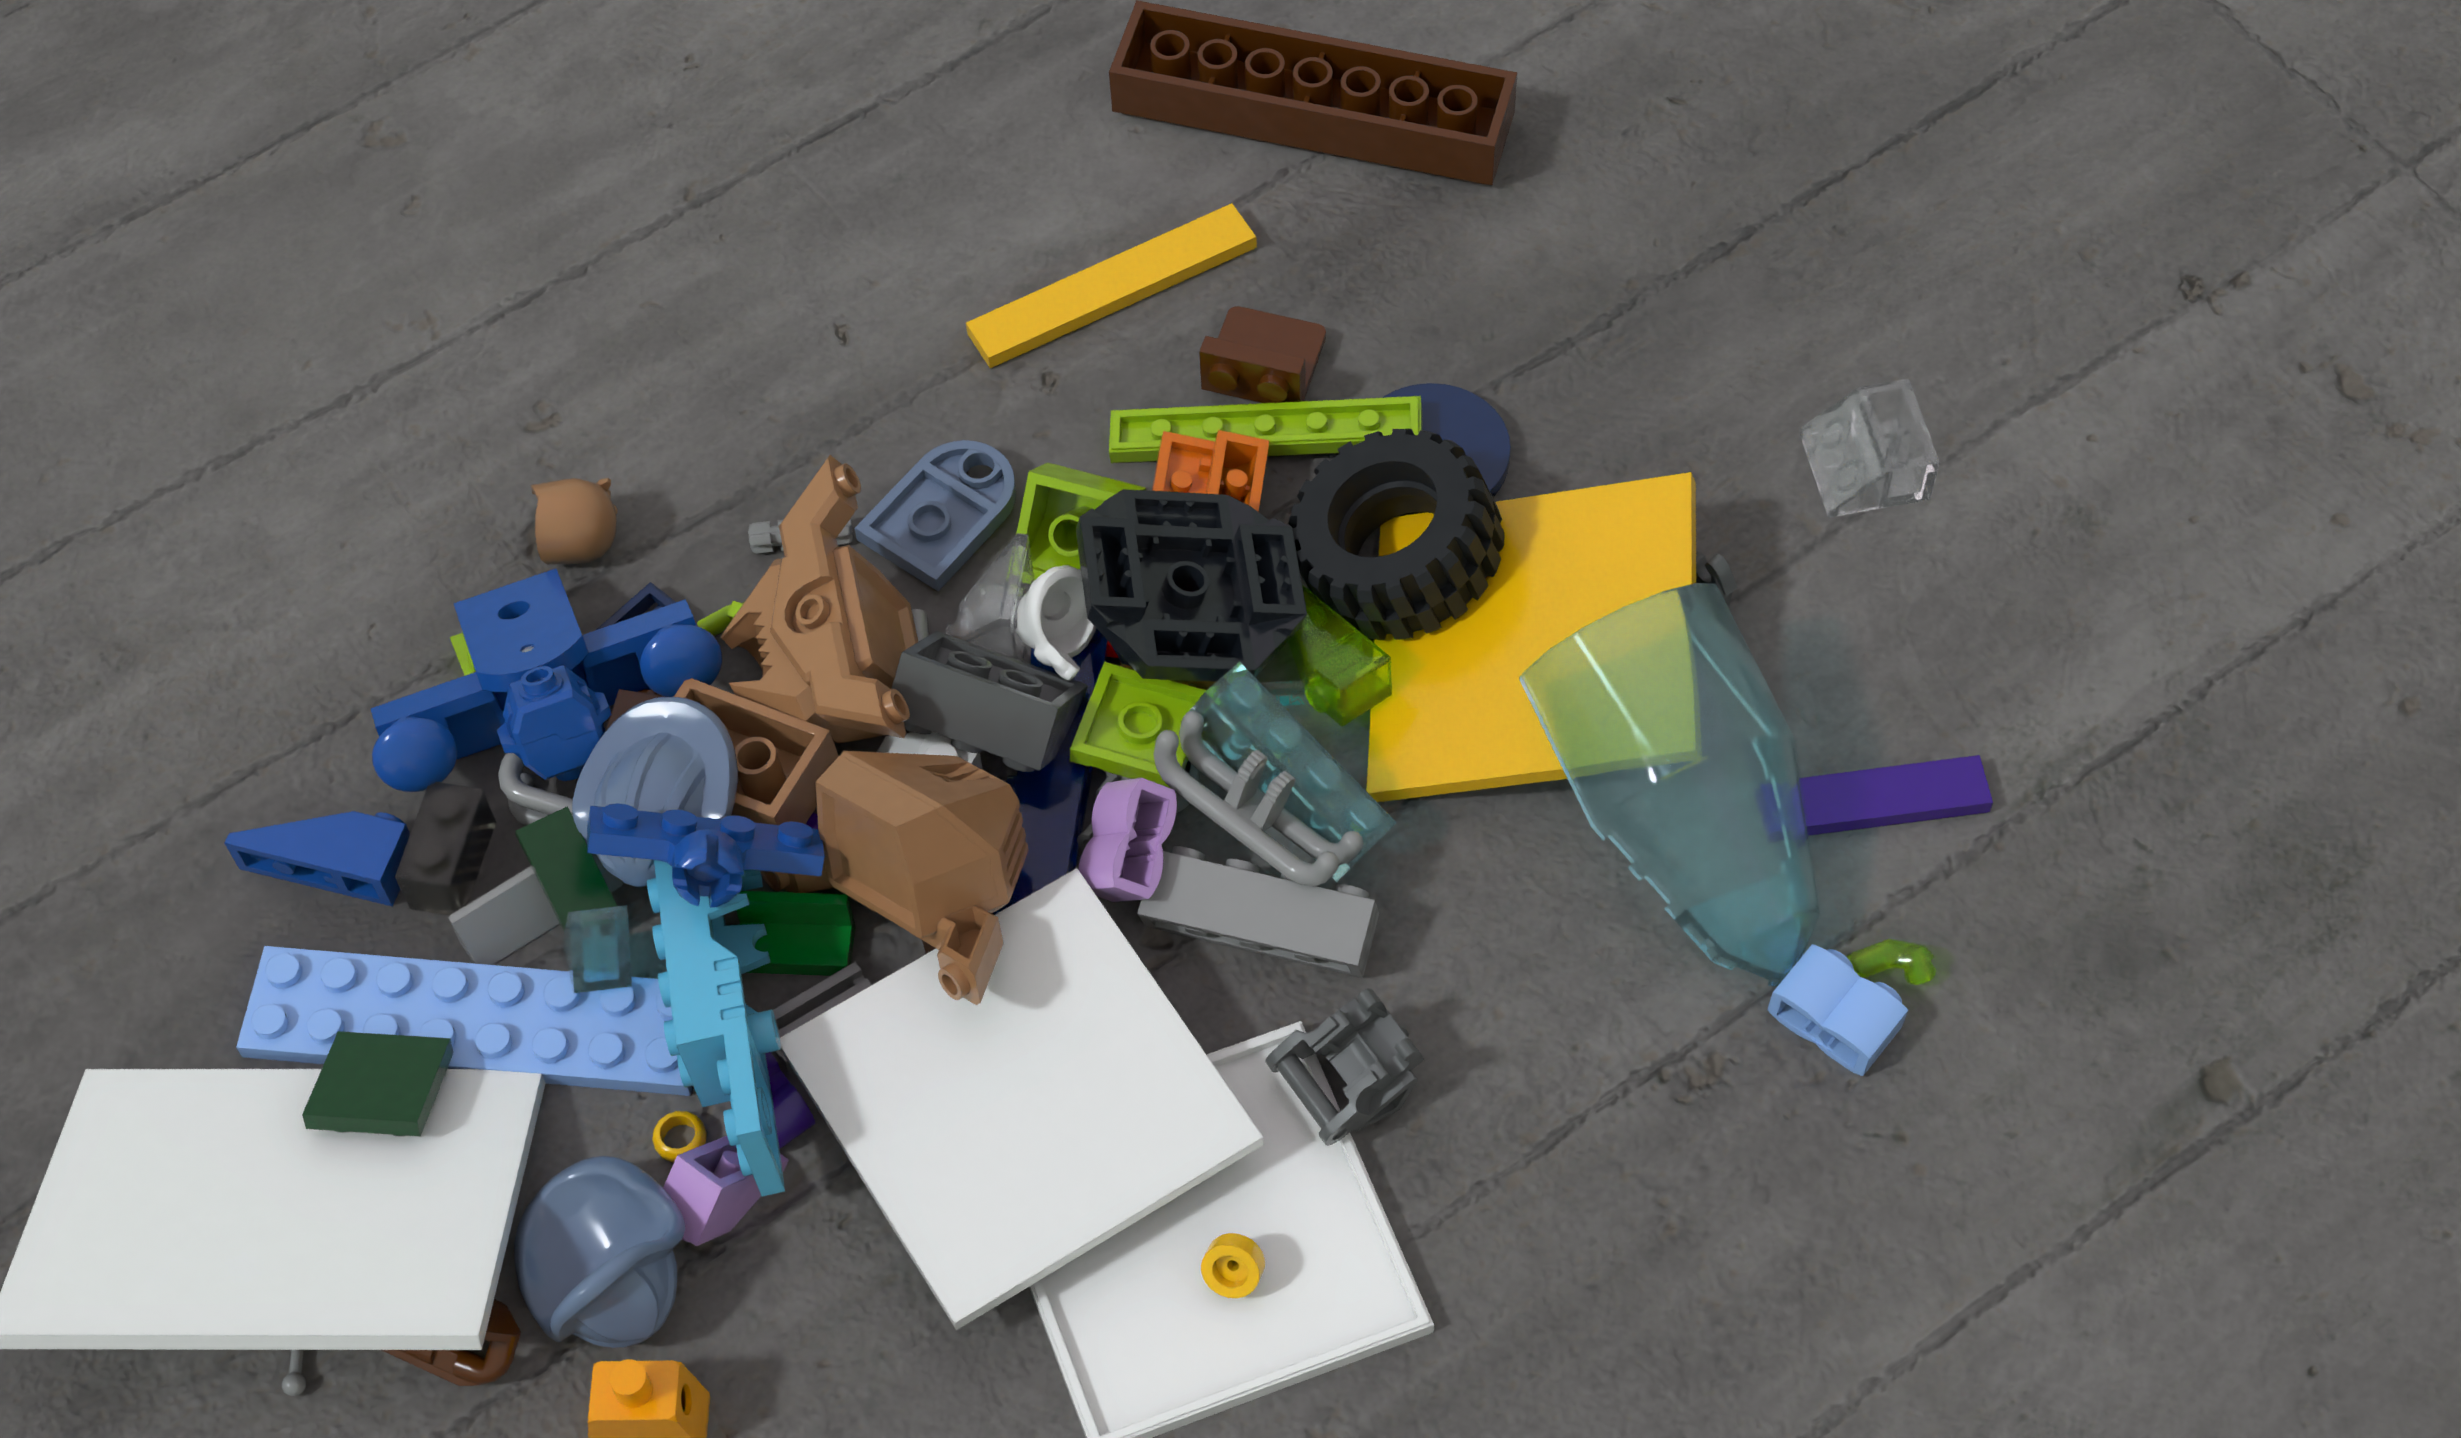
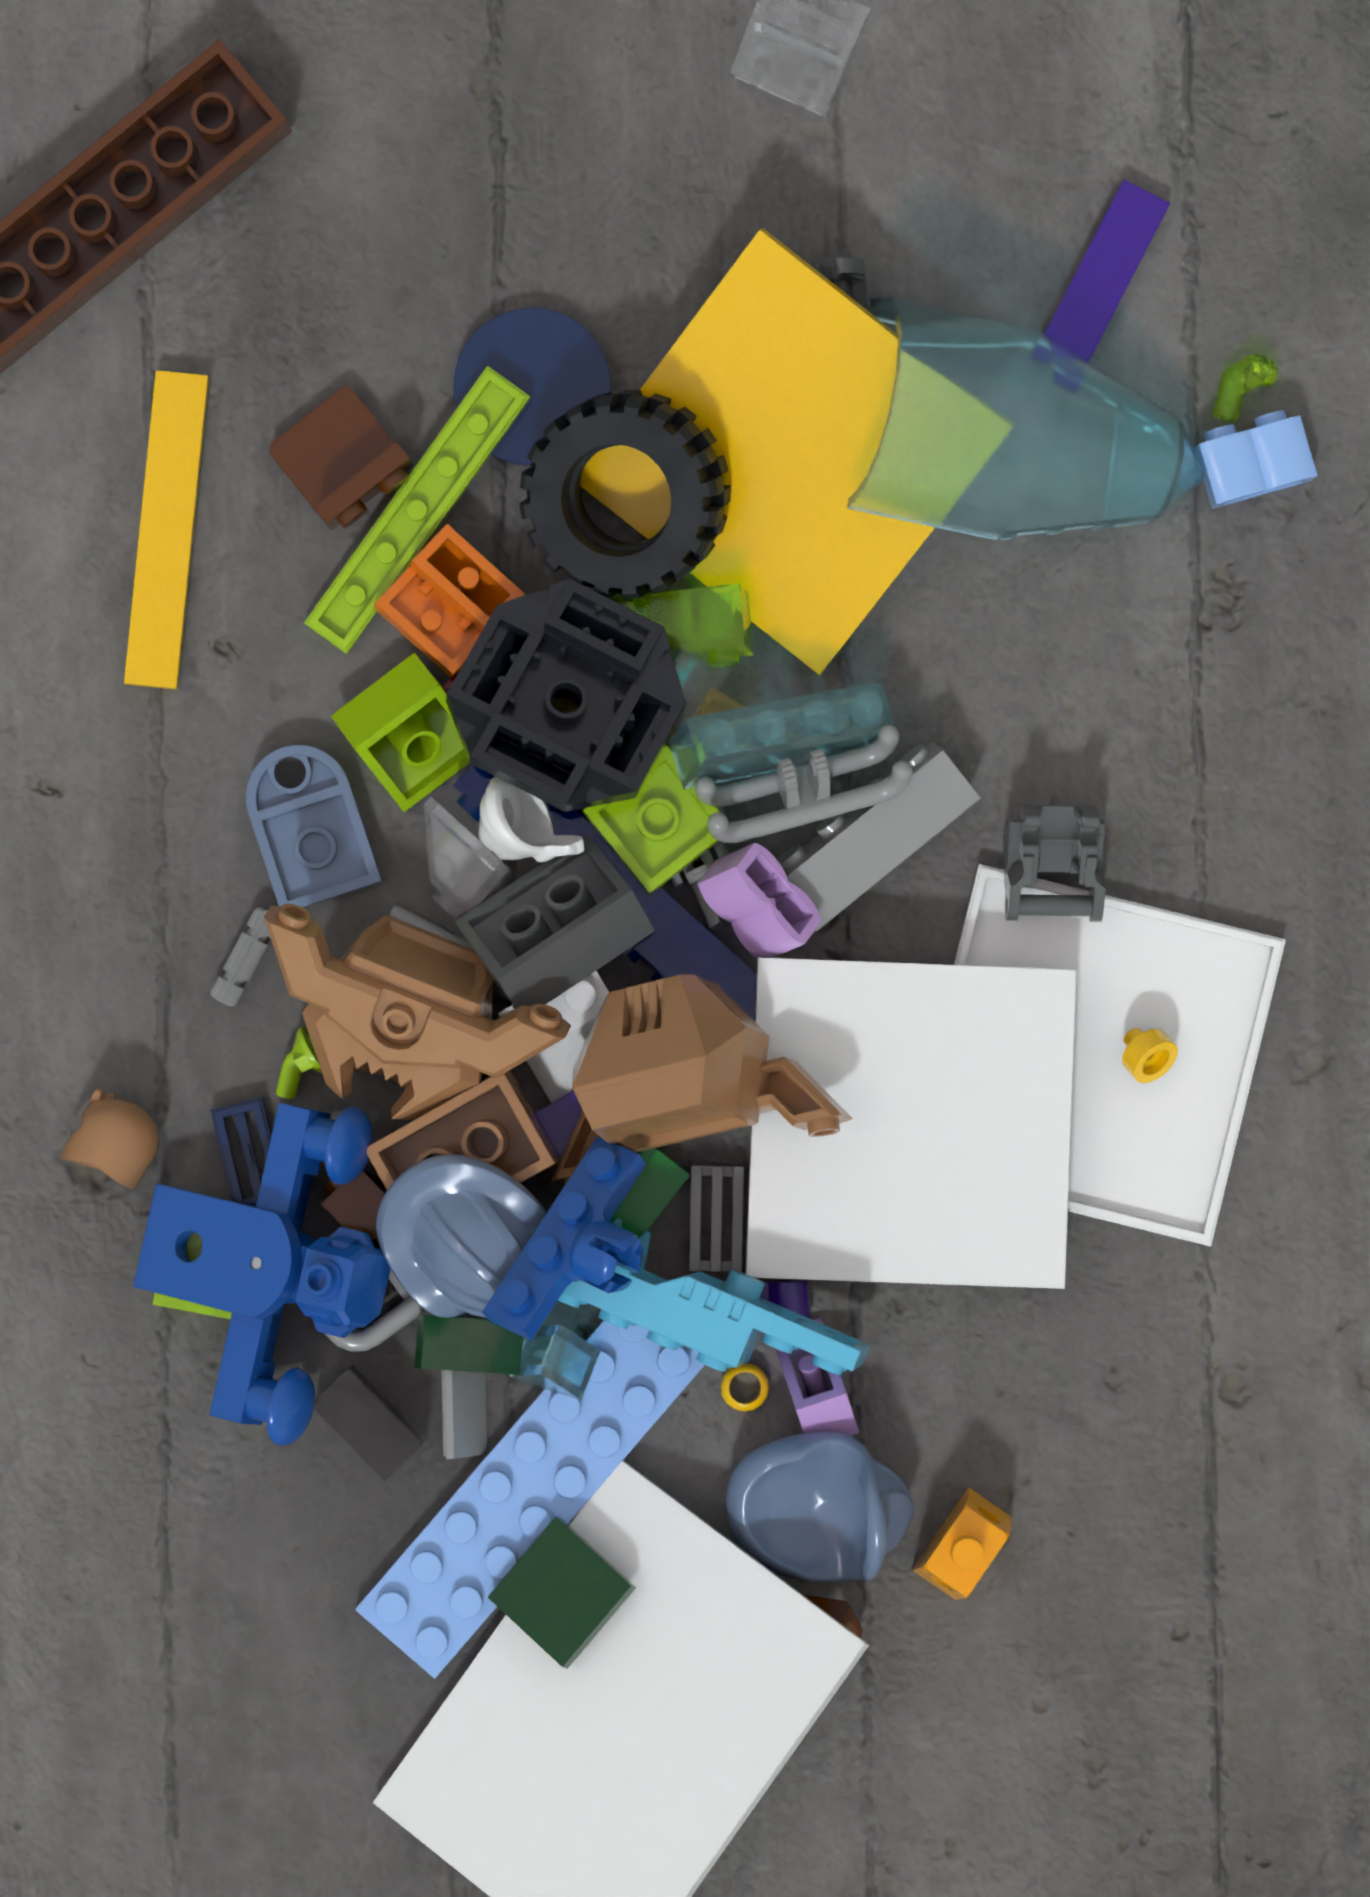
camera: 55 degrees left, 30 degrees up
(333, 853) = (314, 1502): blue slope -> none

